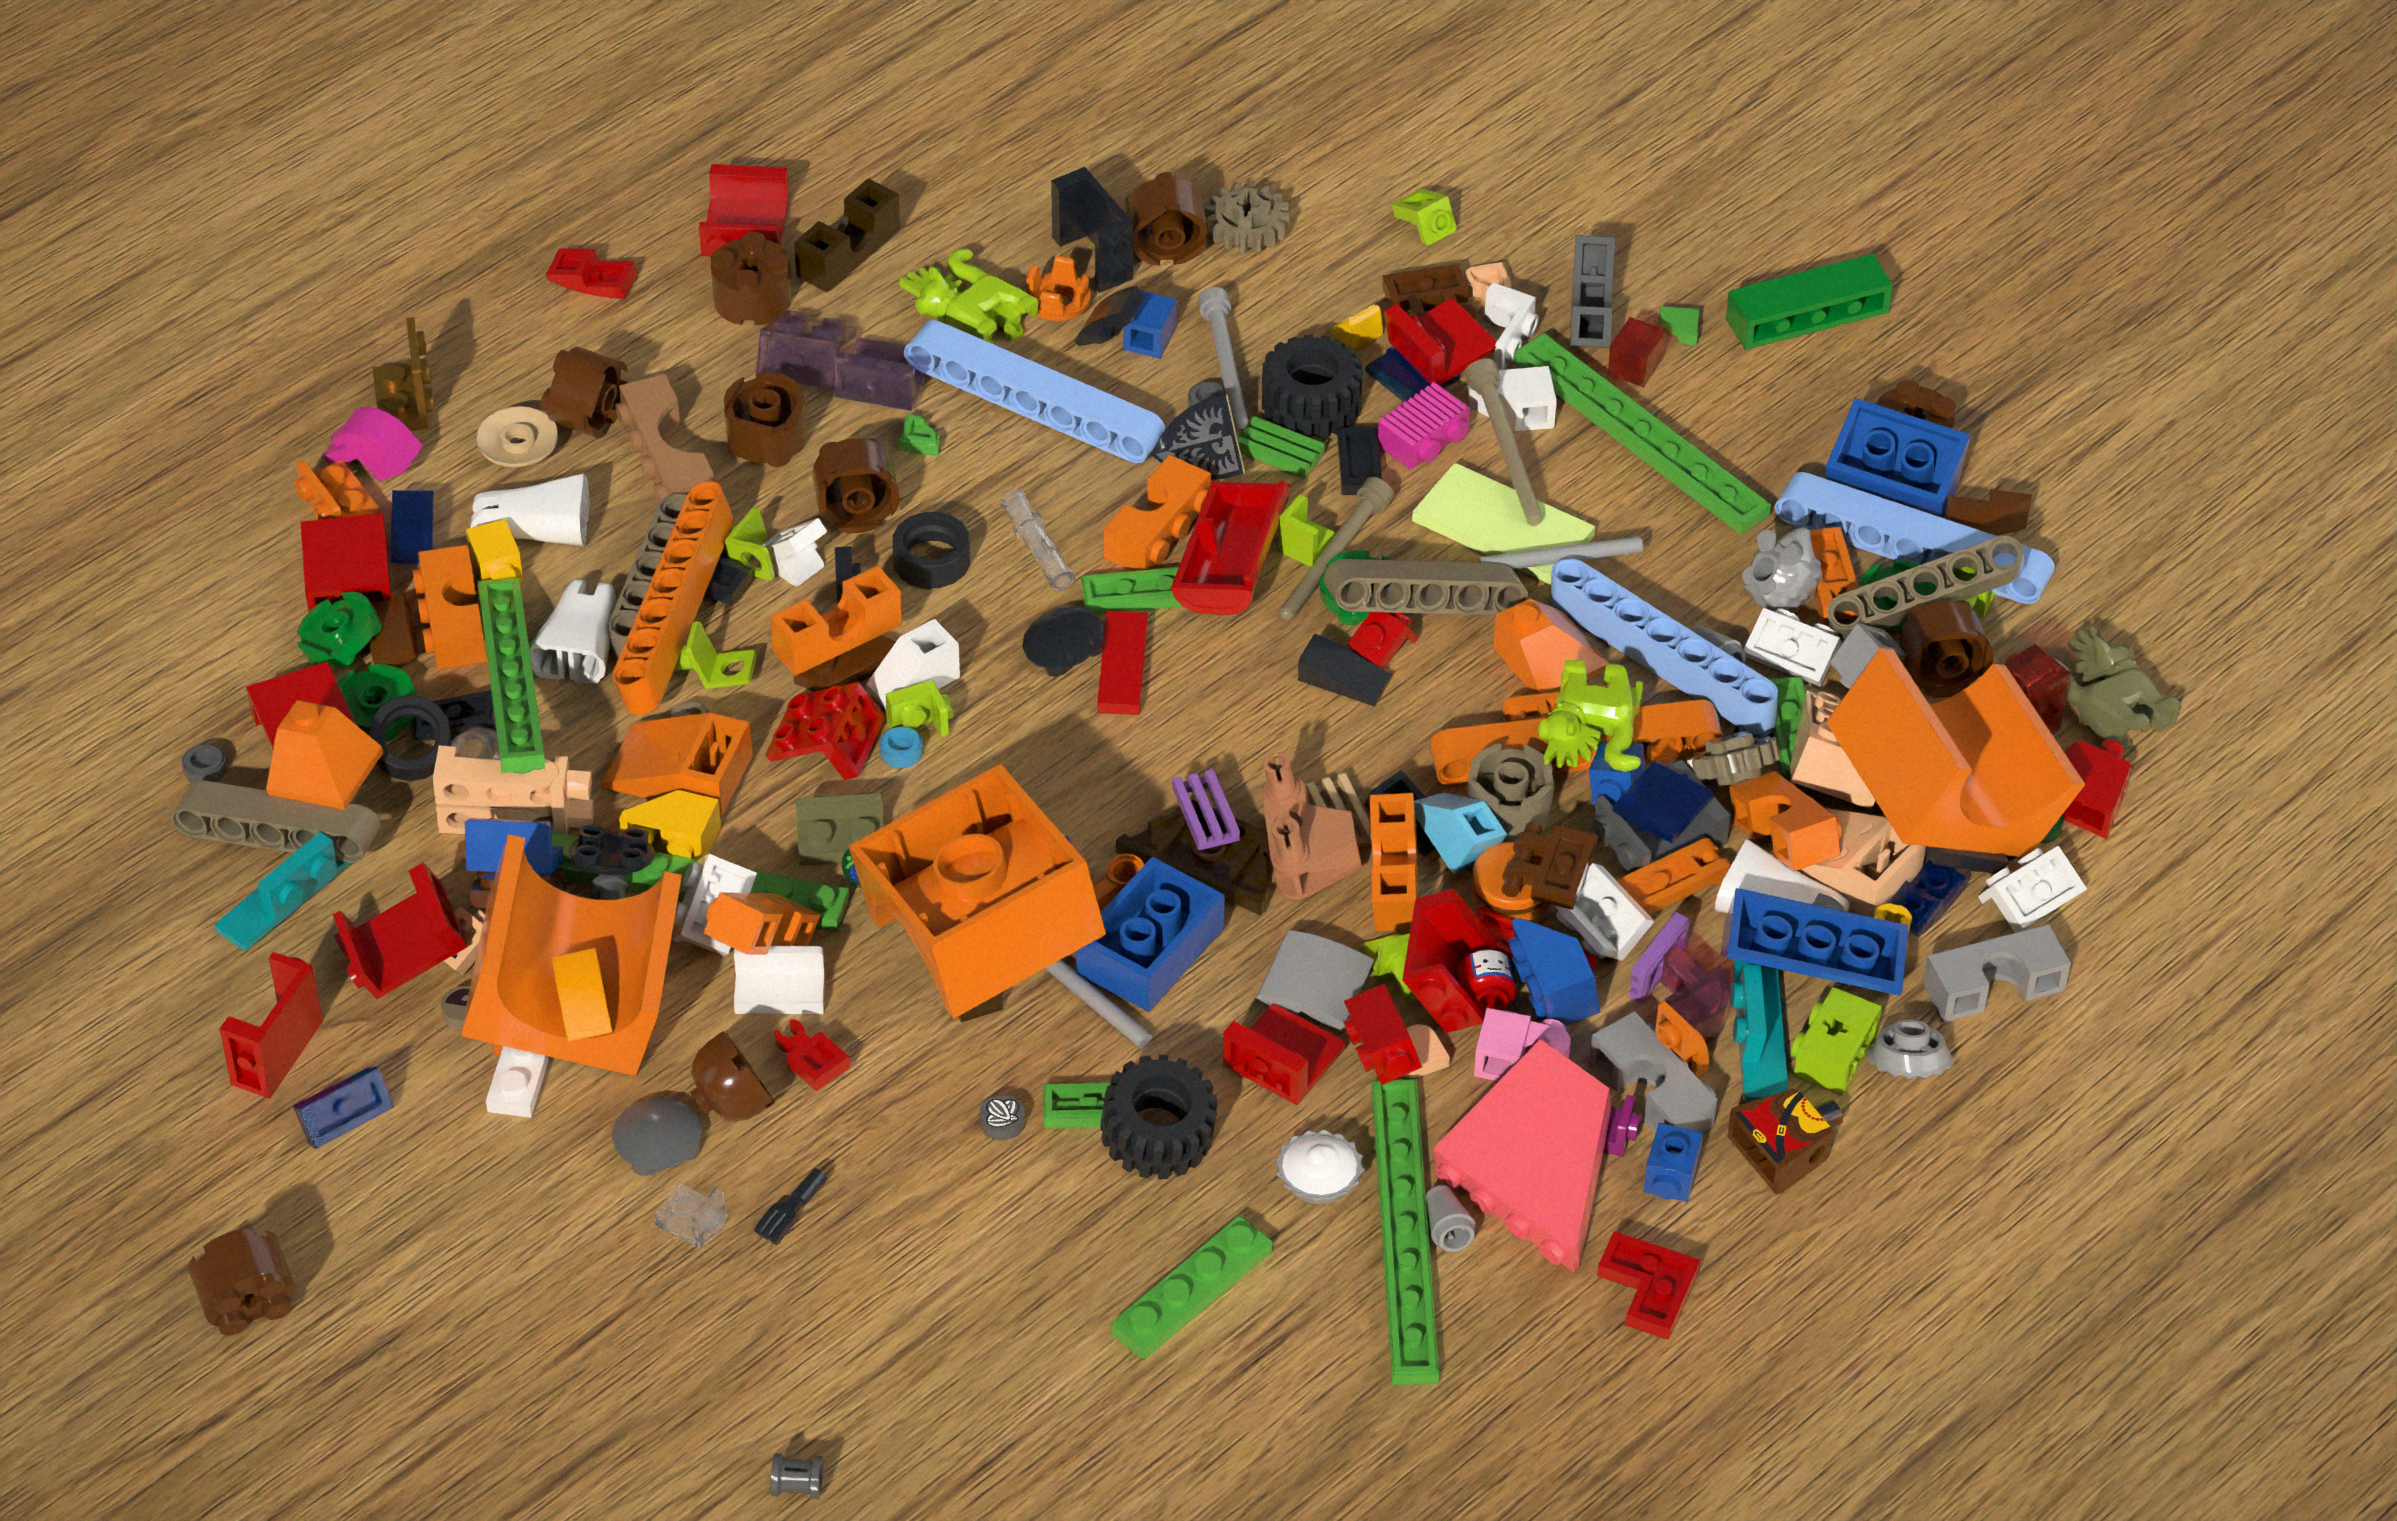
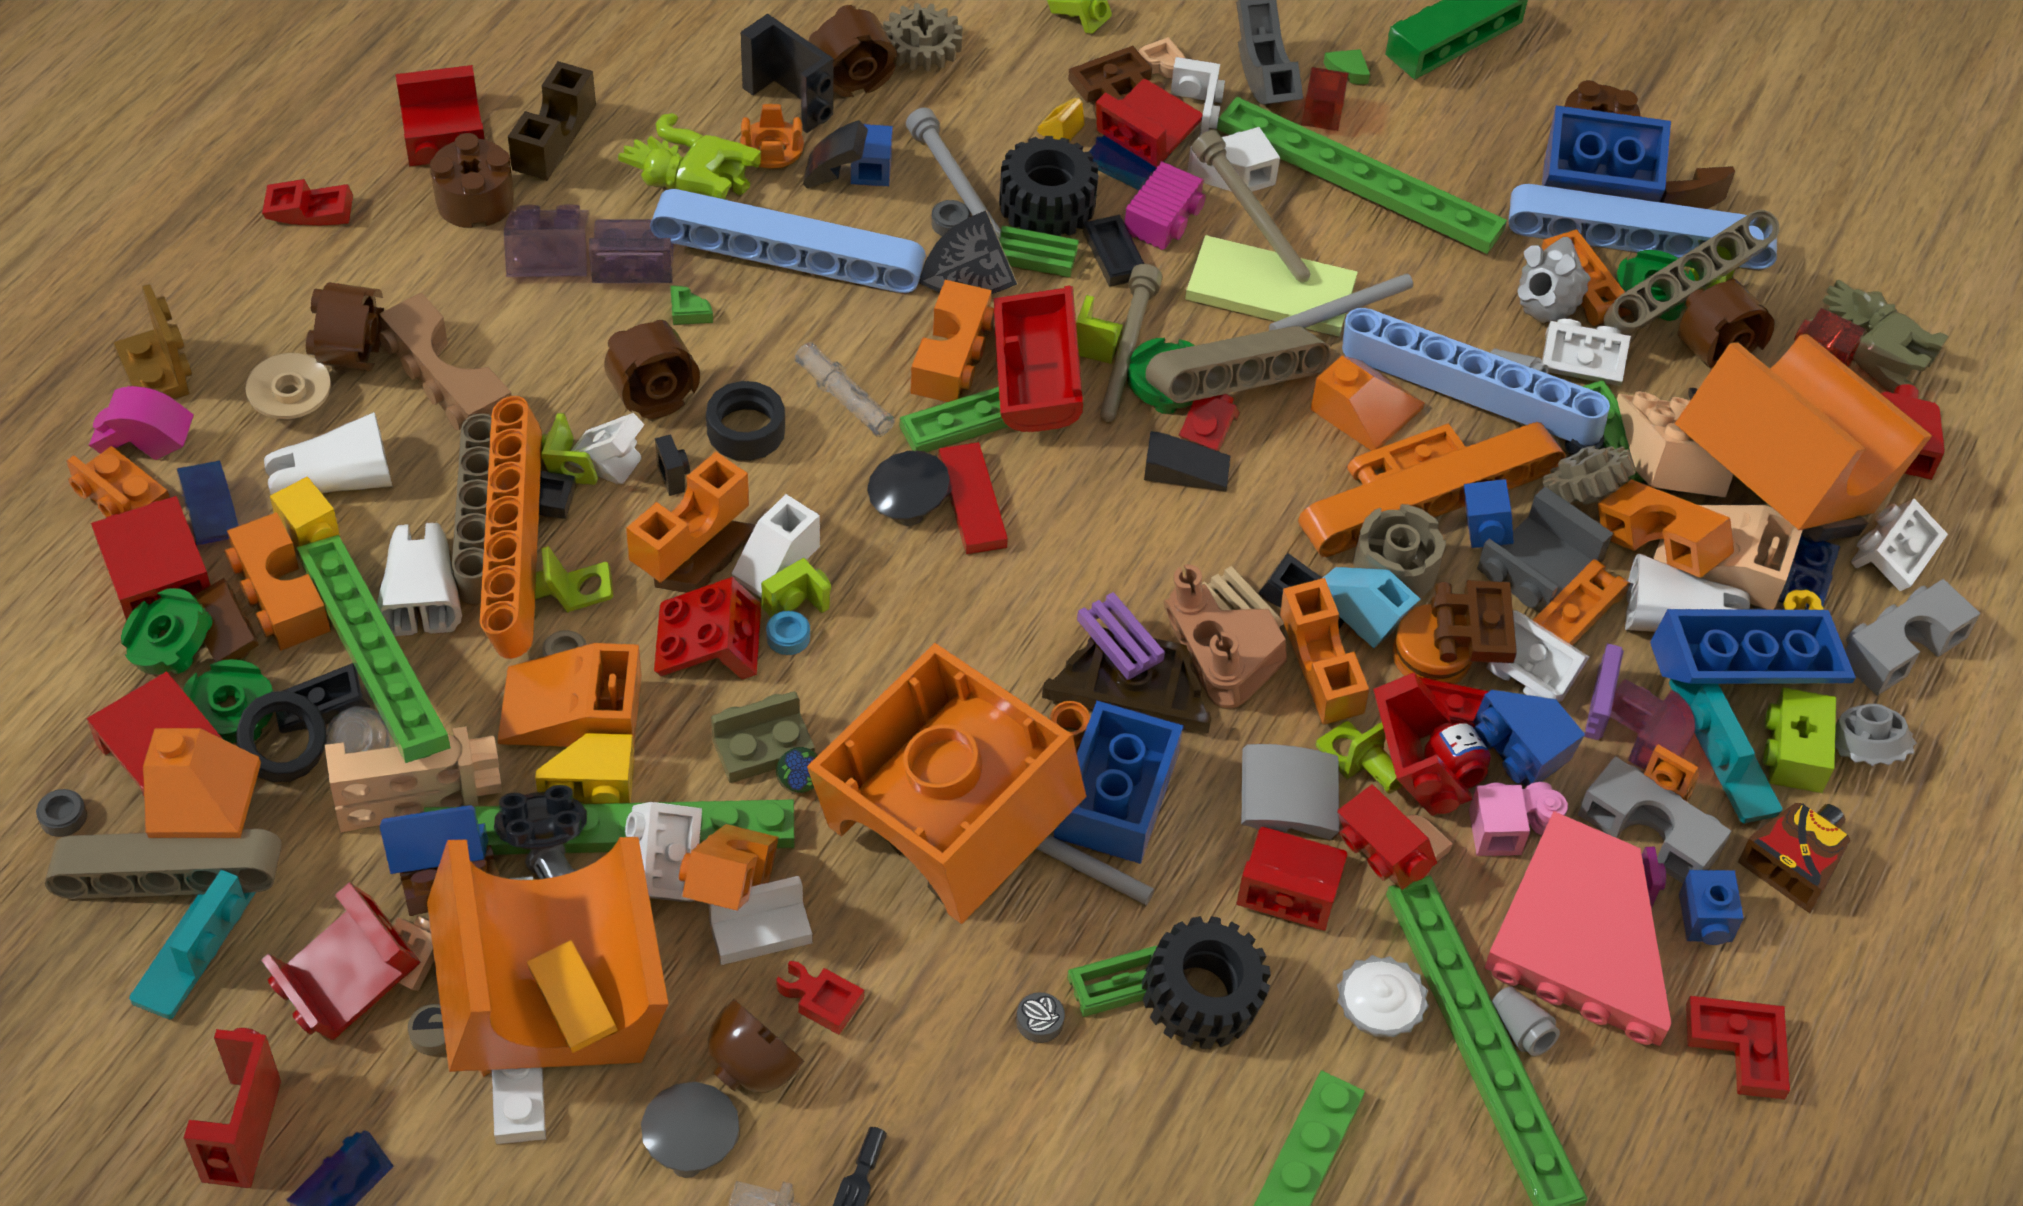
camera: 20 degrees left, 5 degrees up
(765, 418) = (536, 319): reddish brown brick -> none
(1590, 711) = (1450, 459): lime animal -> none
(1663, 802) = (1548, 533): clear blue piece -> none
(1859, 650) = (1661, 352): light grey brick -> none

